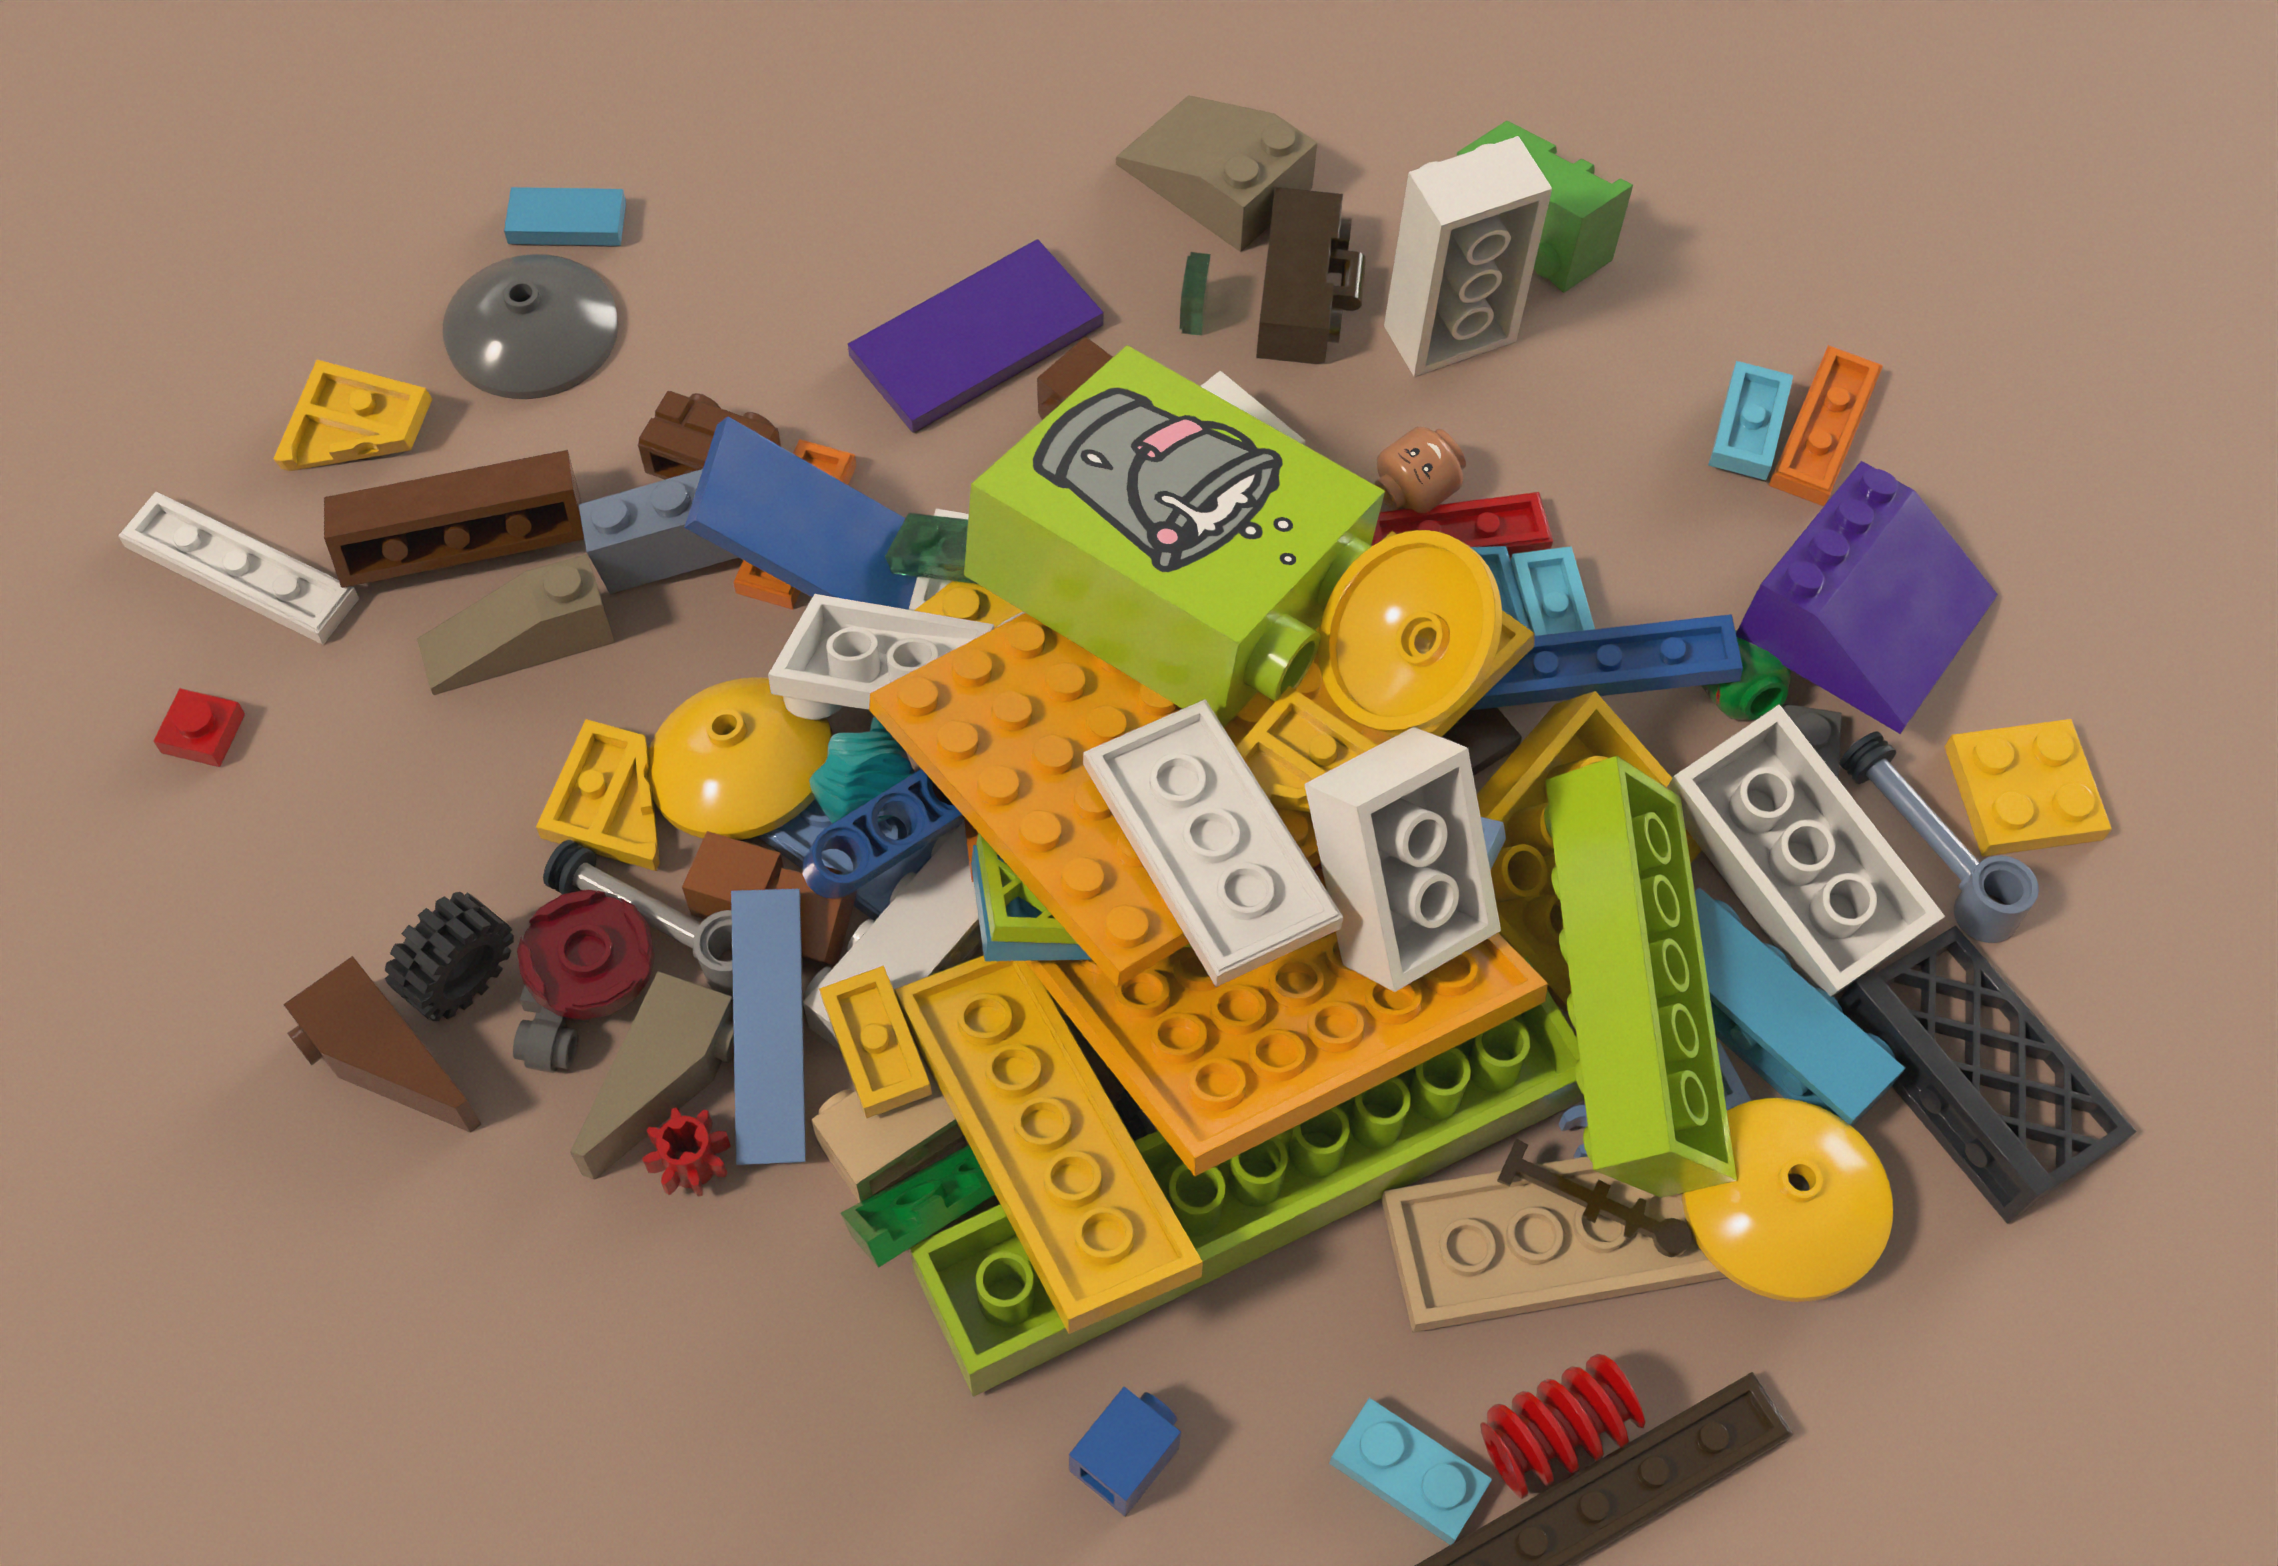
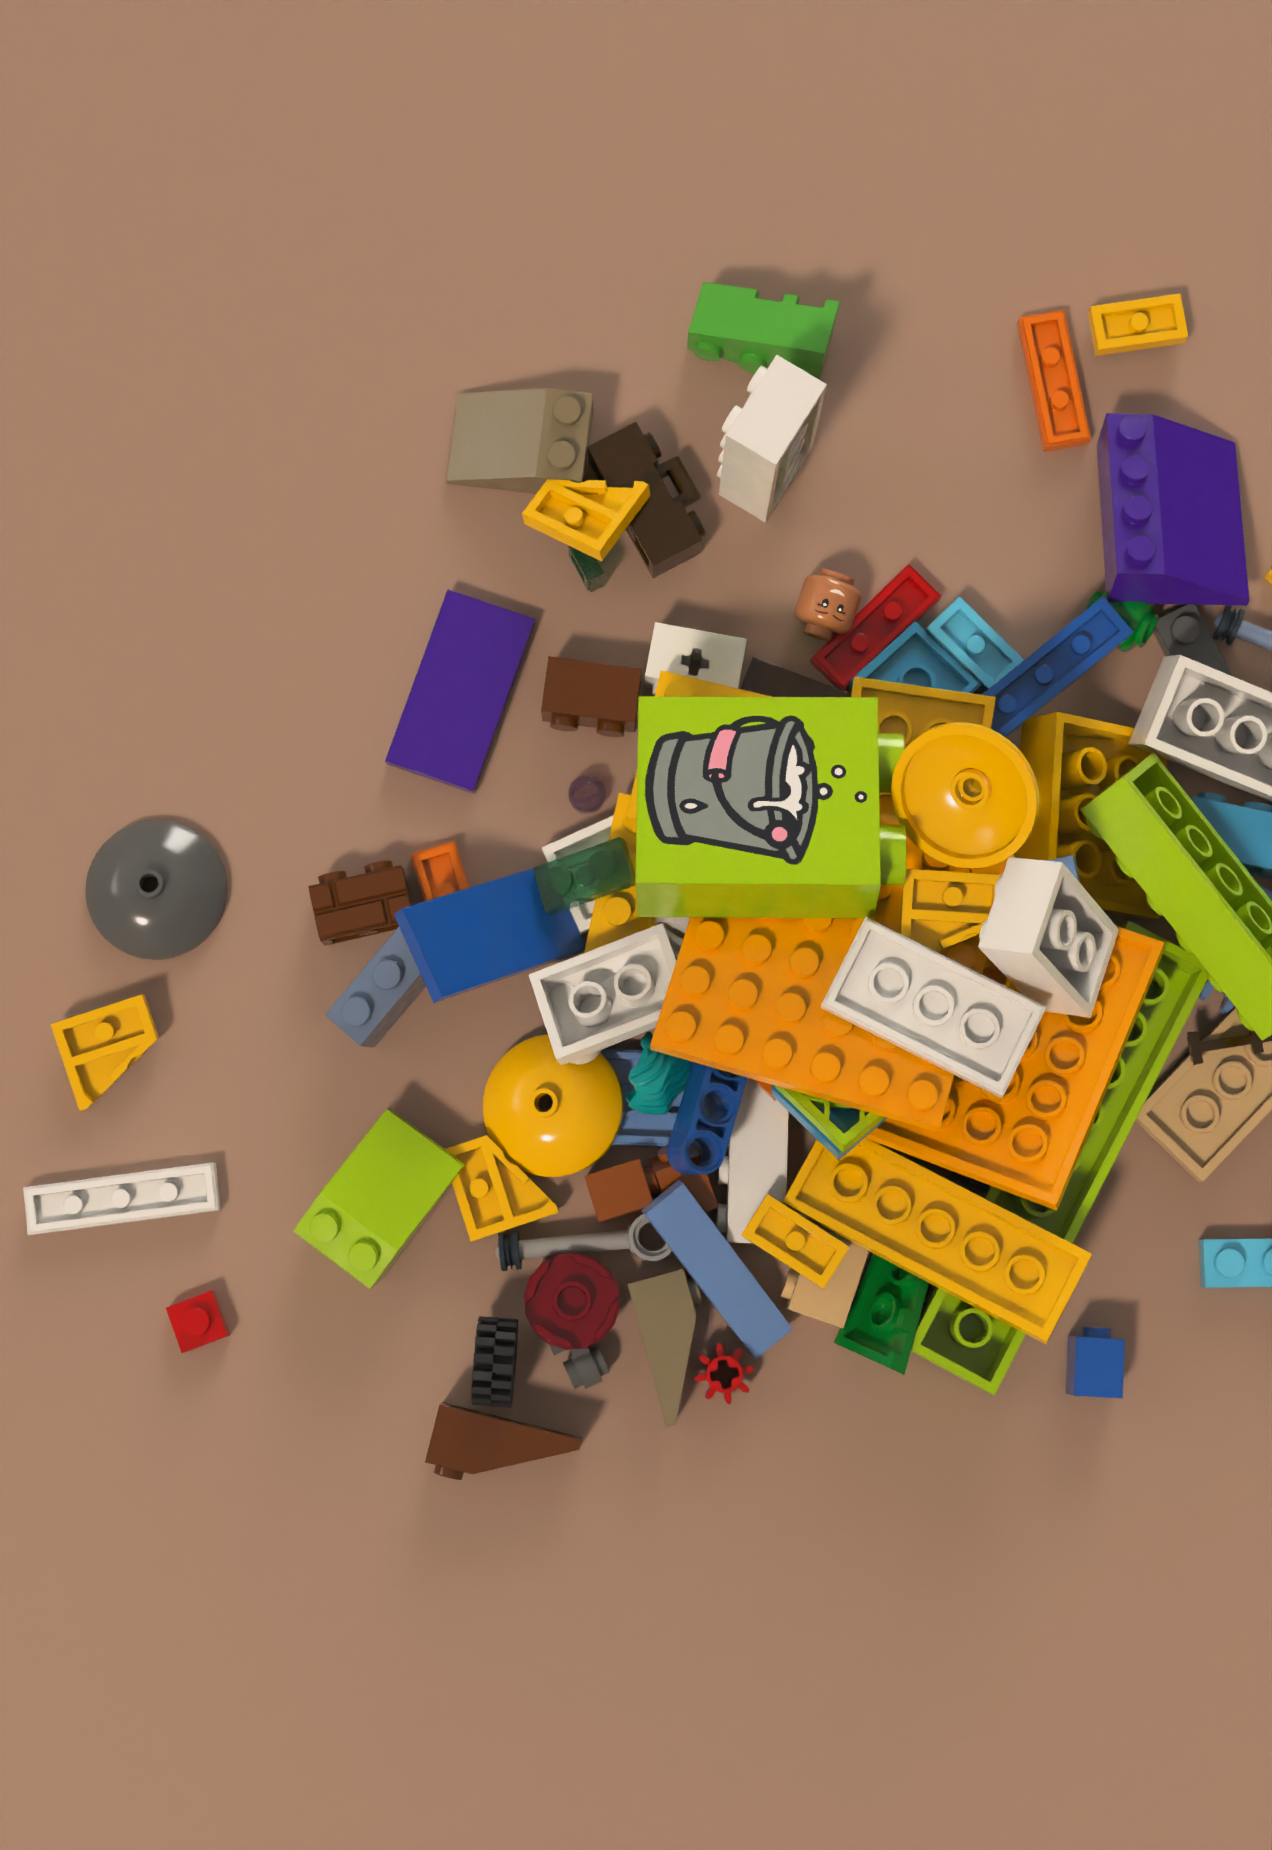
camera: 35 degrees left, 20 degrees up
(452, 518) = (241, 1073): reddish brown brick -> none
(475, 719) = (379, 1198): none -> lime slope
(518, 626) = (341, 1119): dark tan slope -> none
(565, 216) = (110, 790): dark azure tile -> none
(1226, 233) = (585, 513): none -> yellow wing
(1751, 420) = (1007, 414): medium azure plate -> none
(1958, 422) = (1137, 324): none -> yellow plate

